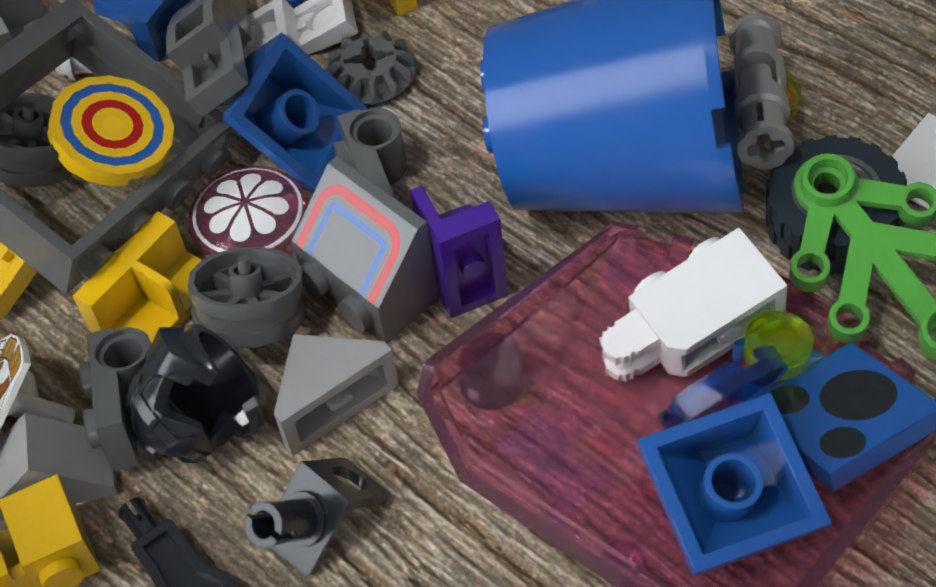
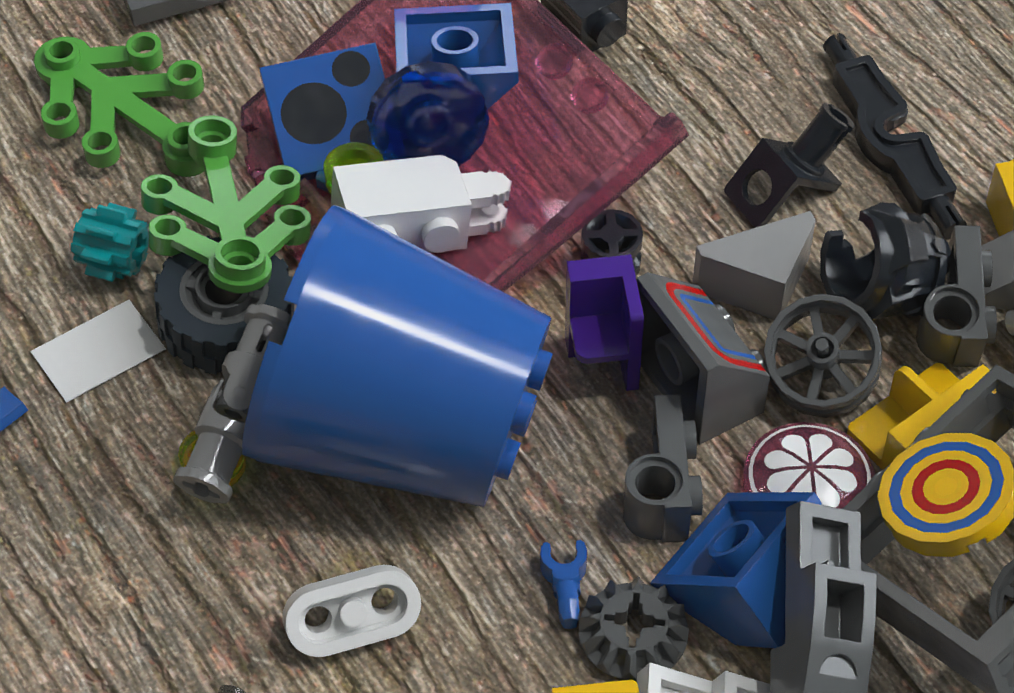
camera: 170 degrees left, 0 degrees up
(436, 86) = (565, 581): none -> blue piece

